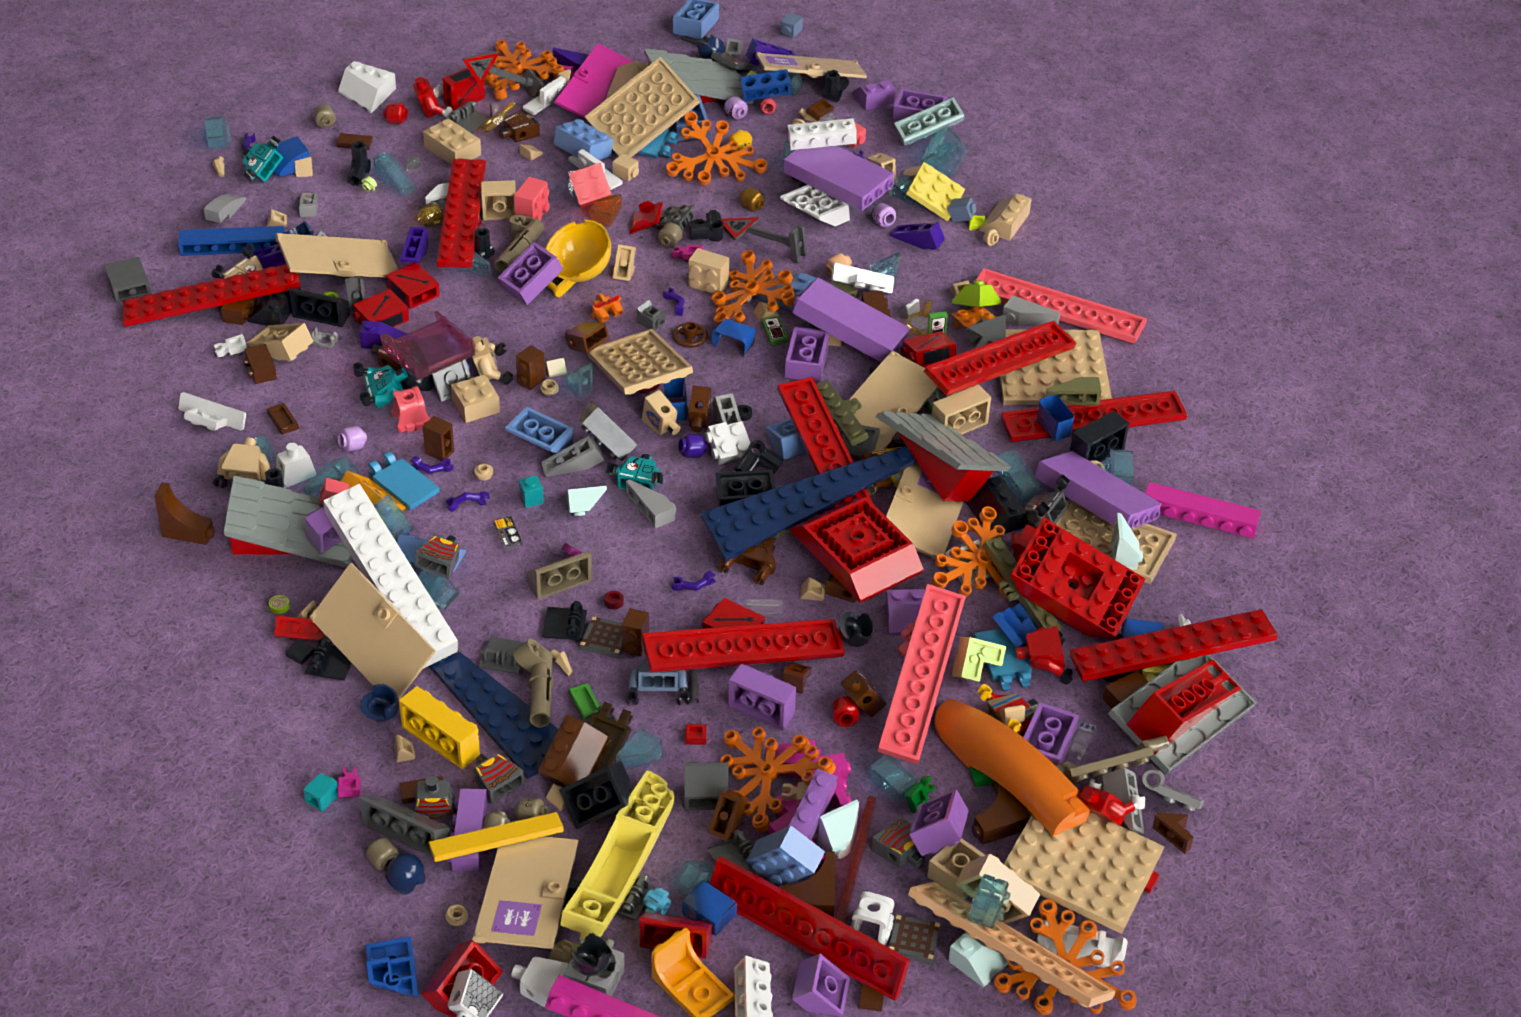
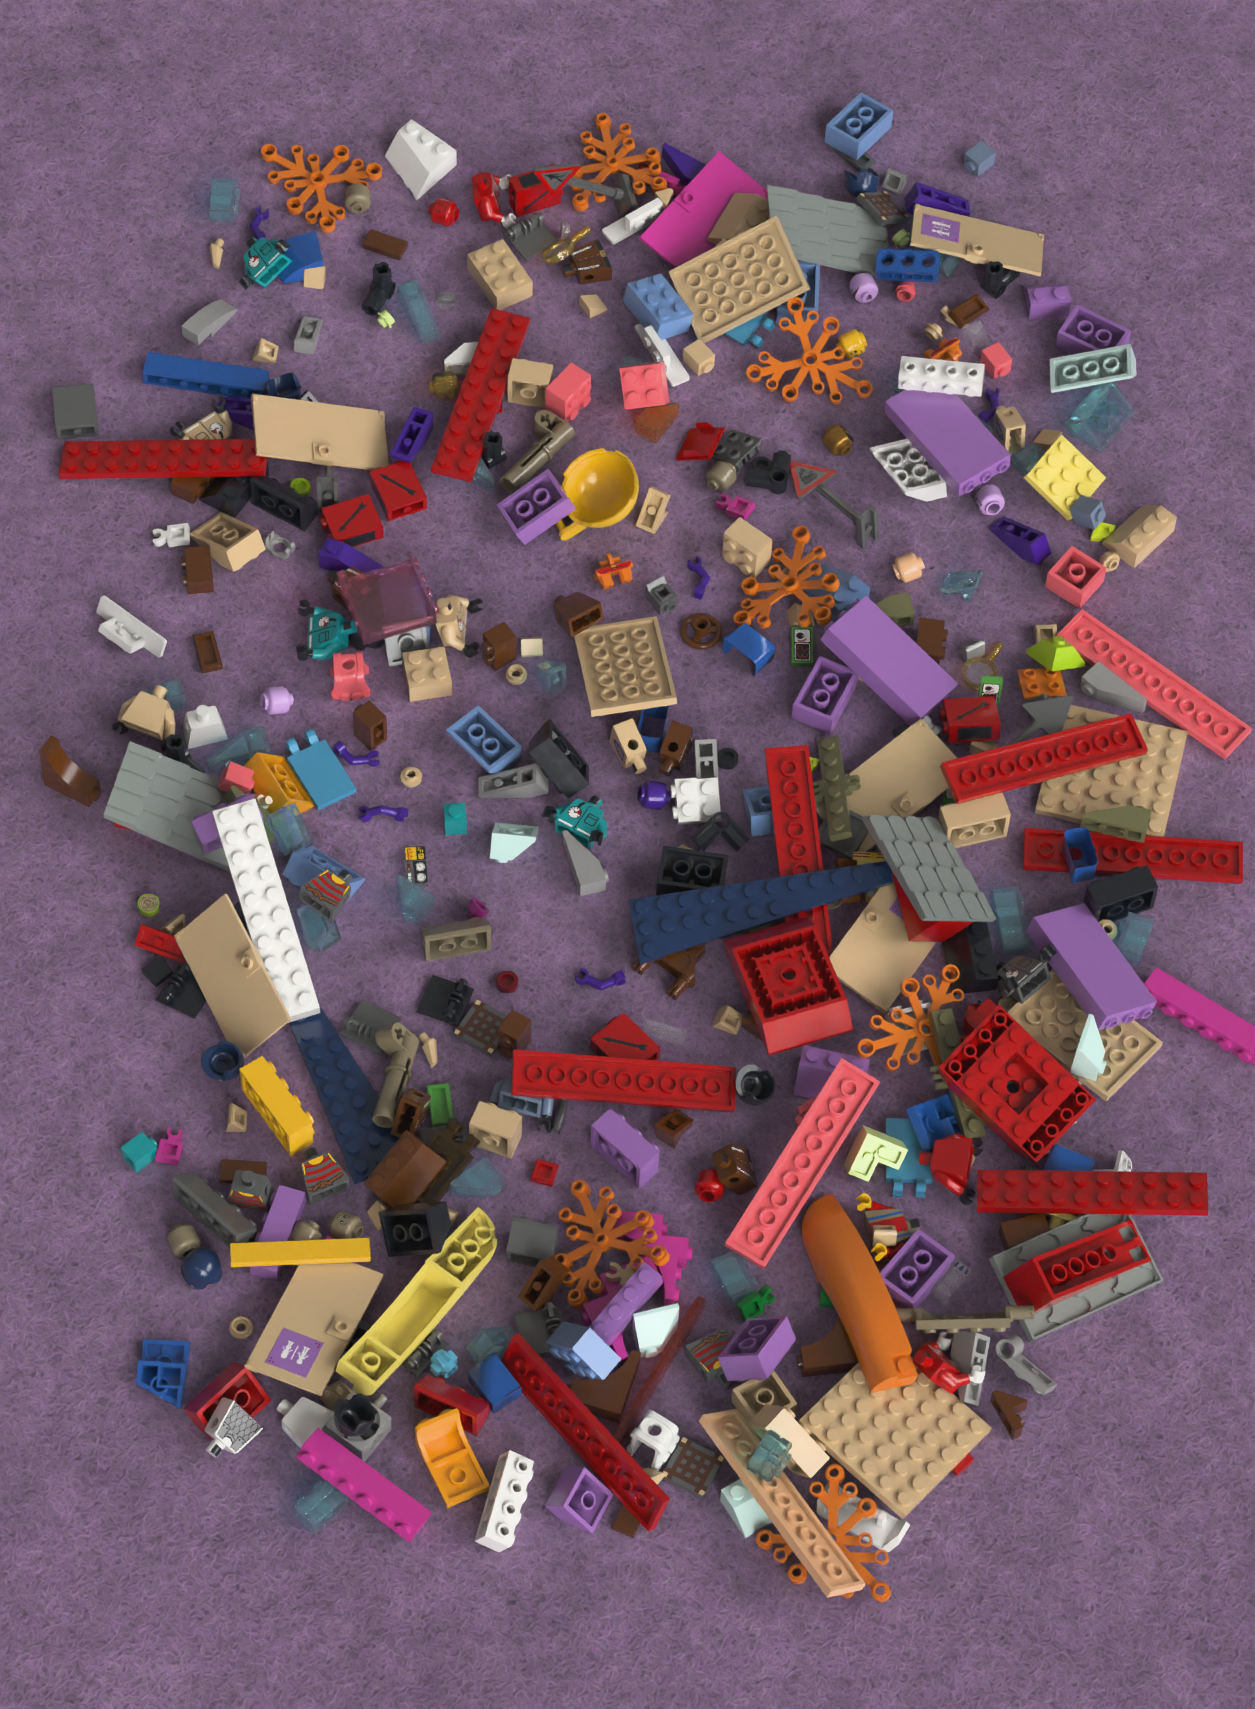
camera: 15 degrees right, 15 degrees up
(287, 112) = (350, 176): none -> orange plant
(514, 555) = (414, 901): none -> clear light blue slope
(563, 704) = (412, 1107): none -> reddish brown torso
(645, 703) = (496, 1129): none -> tan brick
(862, 278) = (926, 599): white bracket -> none
(970, 248) = (1075, 577): none -> coral brick

